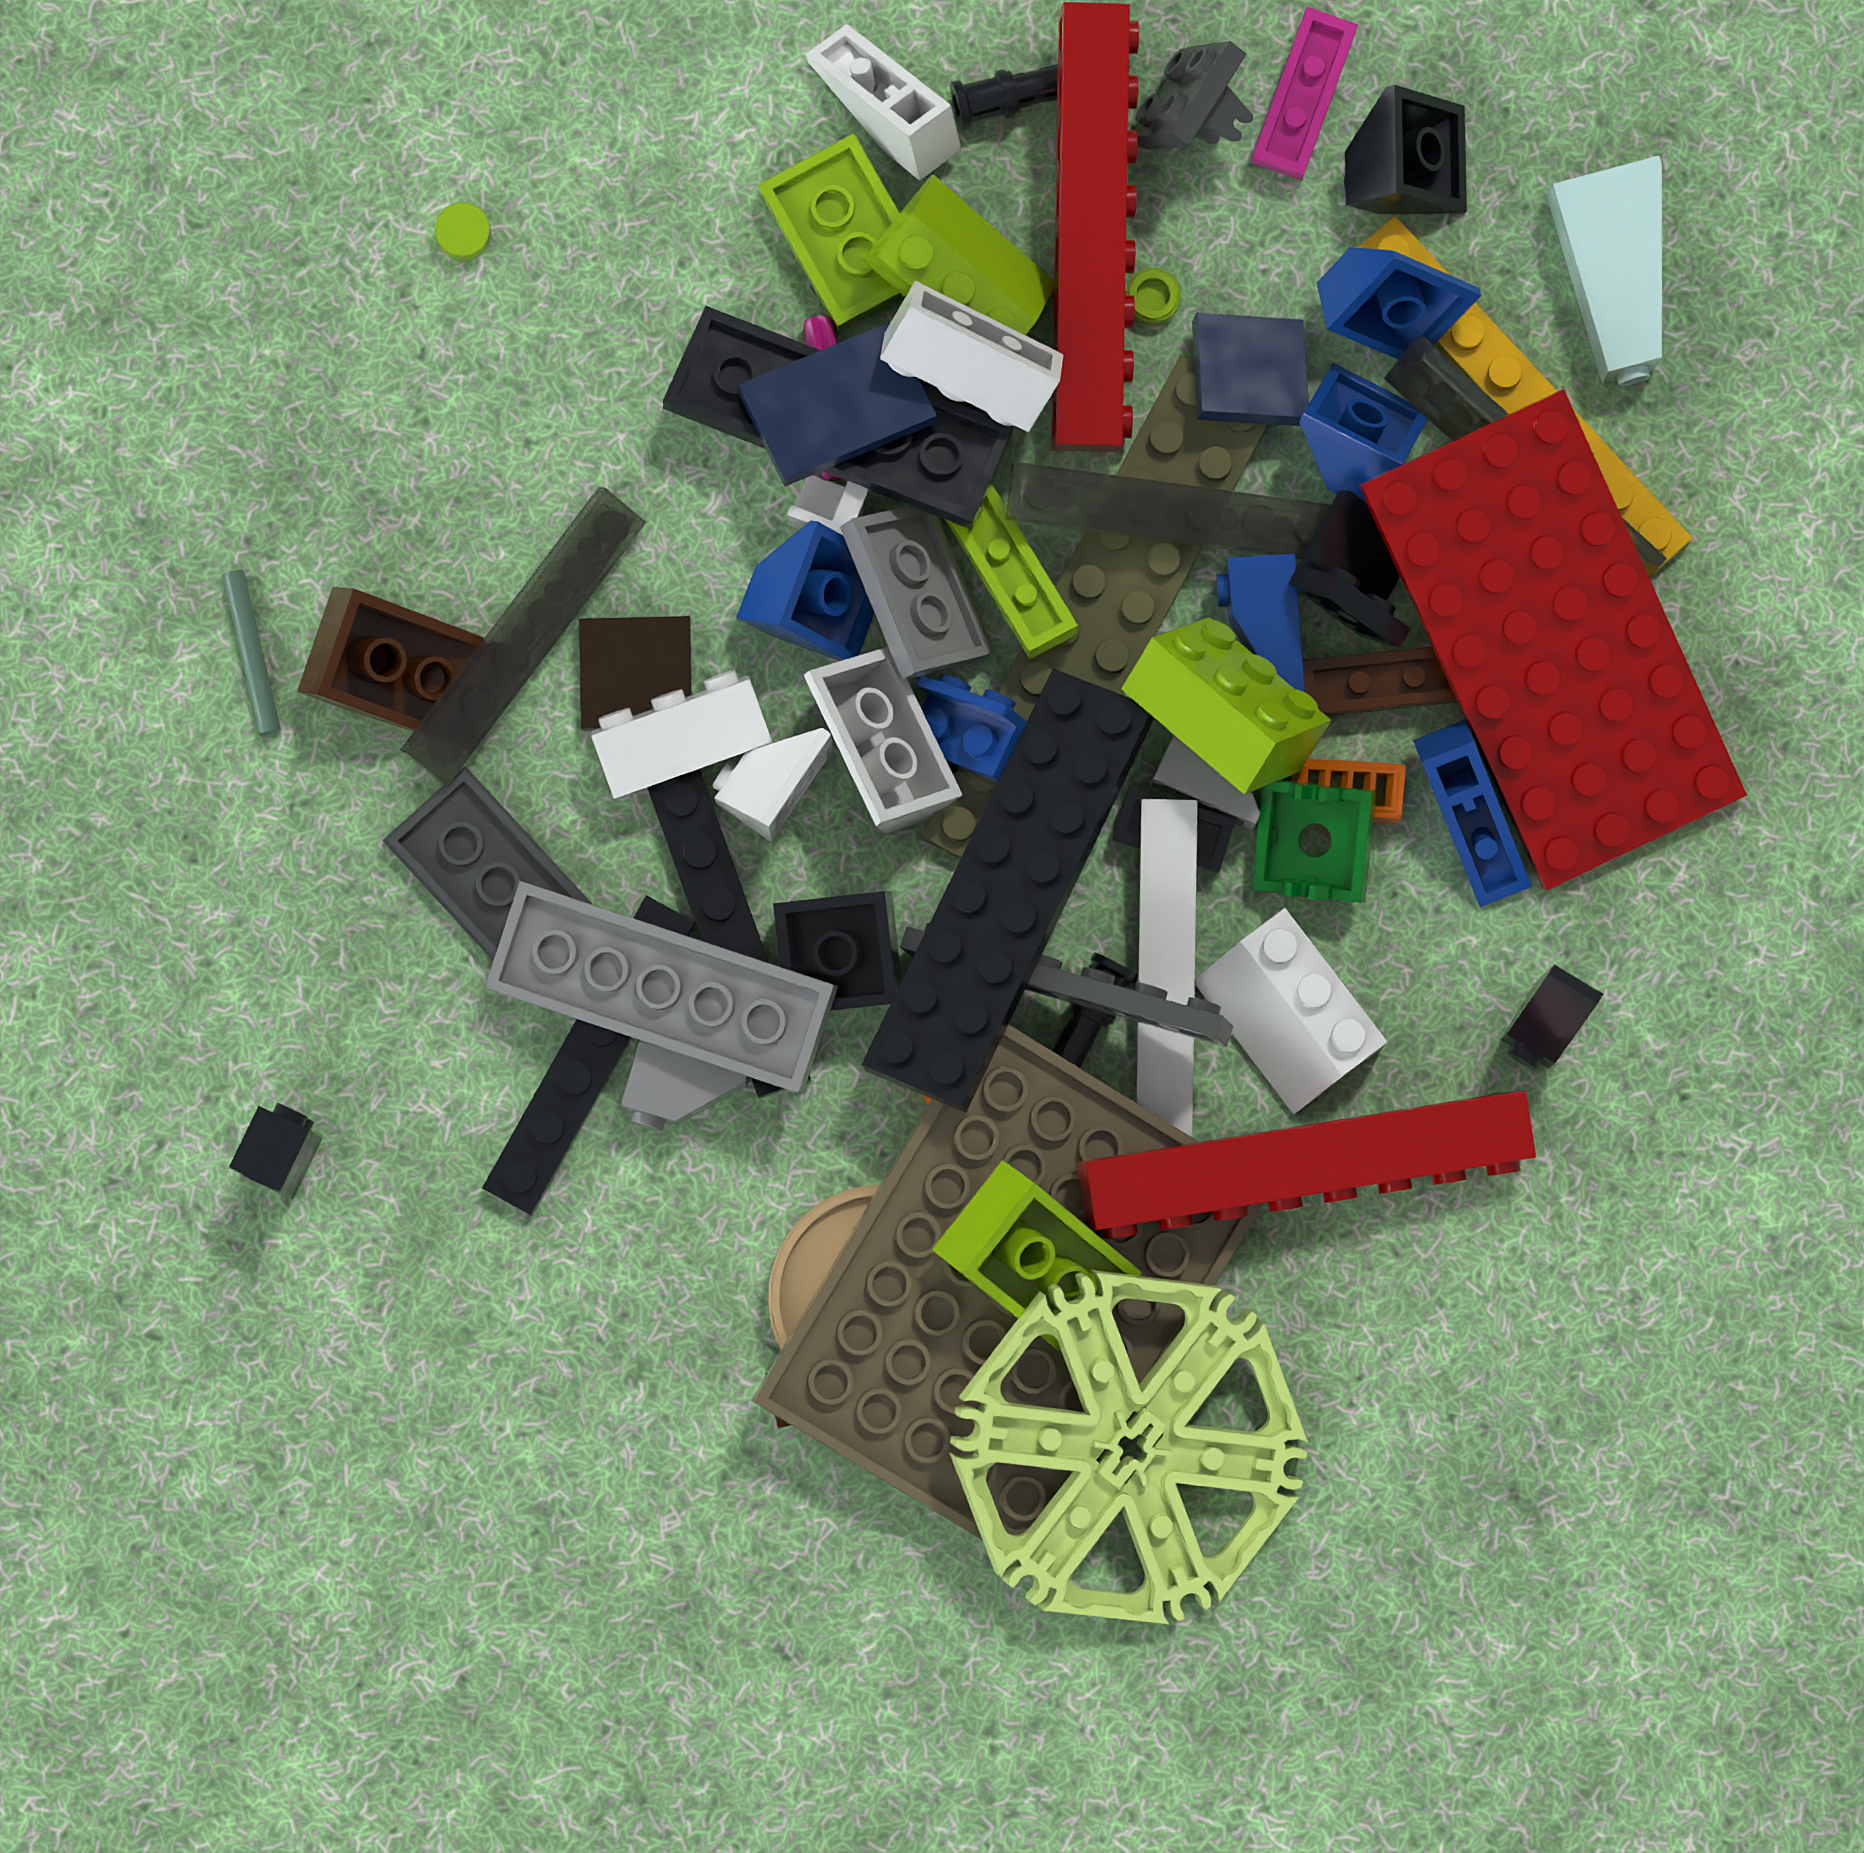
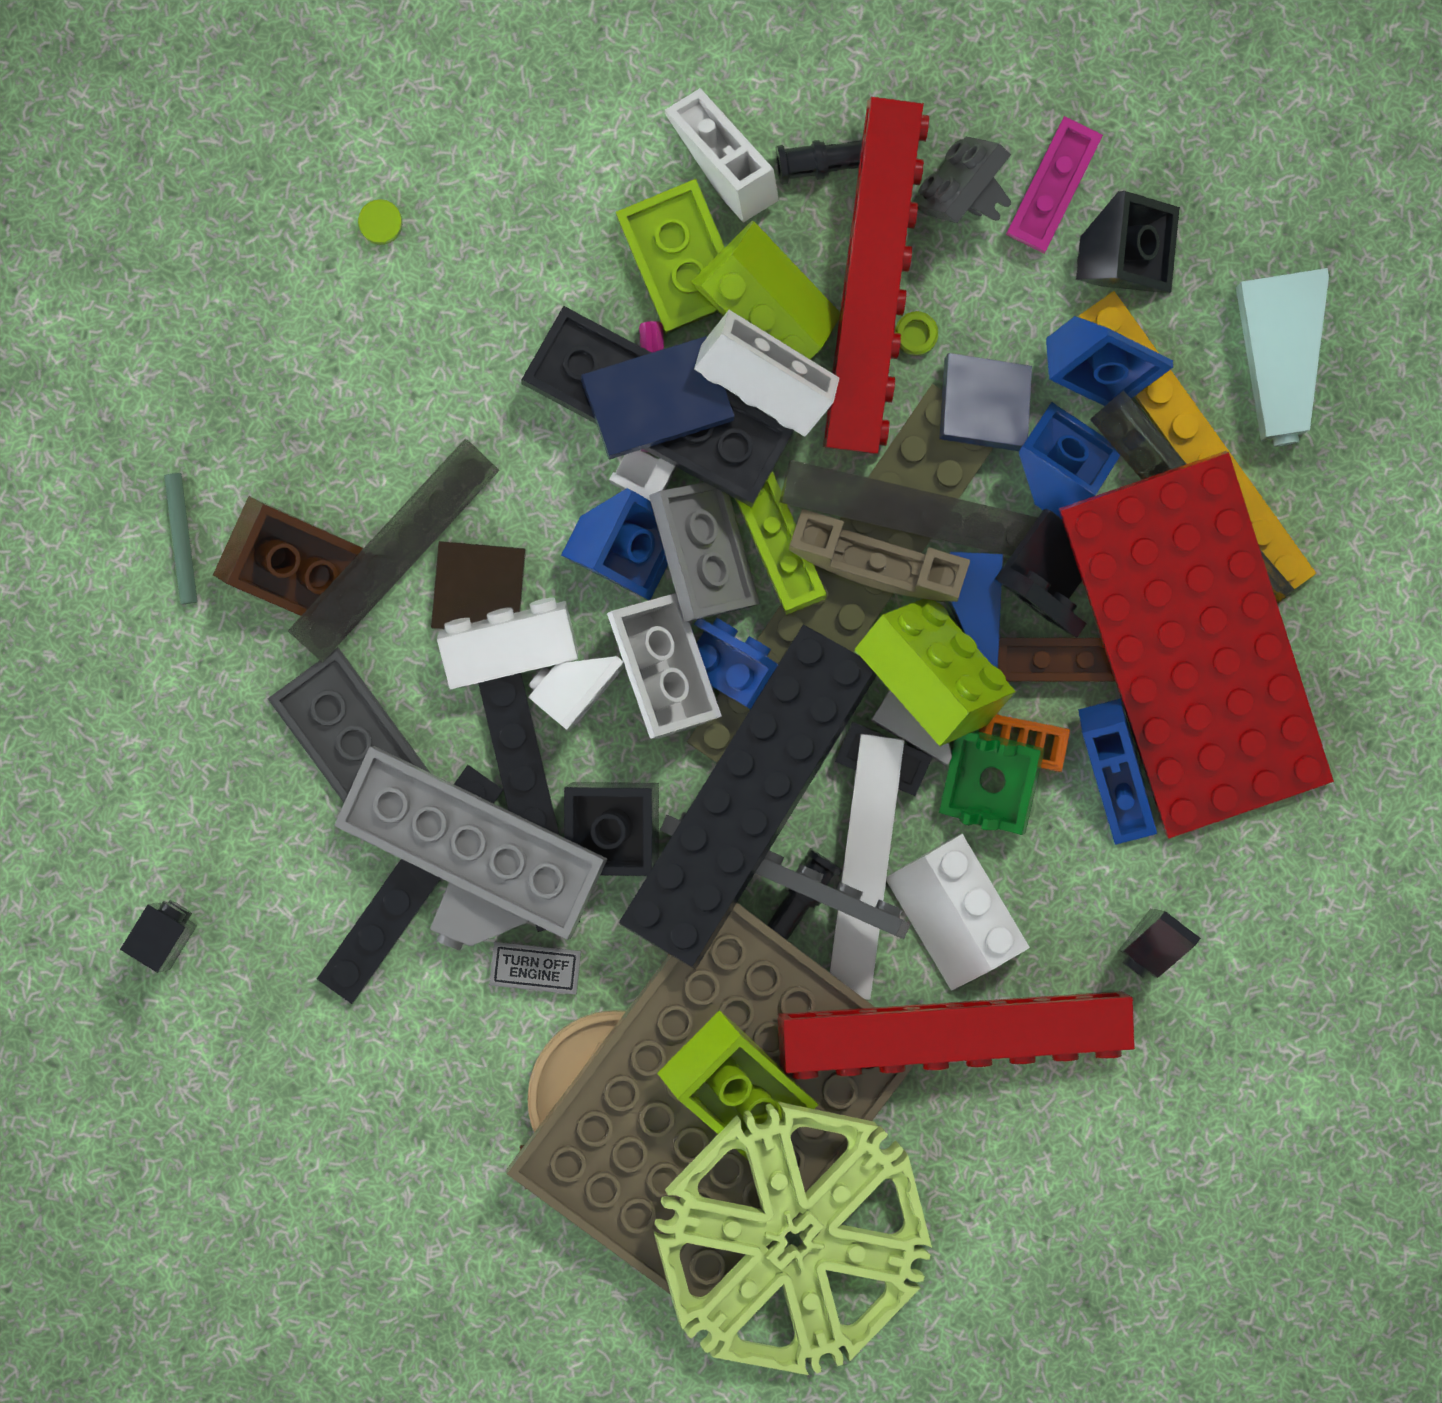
camera: 10 degrees right, 5 degrees up
(760, 1144) = (535, 968): none -> light grey tile
(1137, 581) = (876, 562): none -> dark tan slope

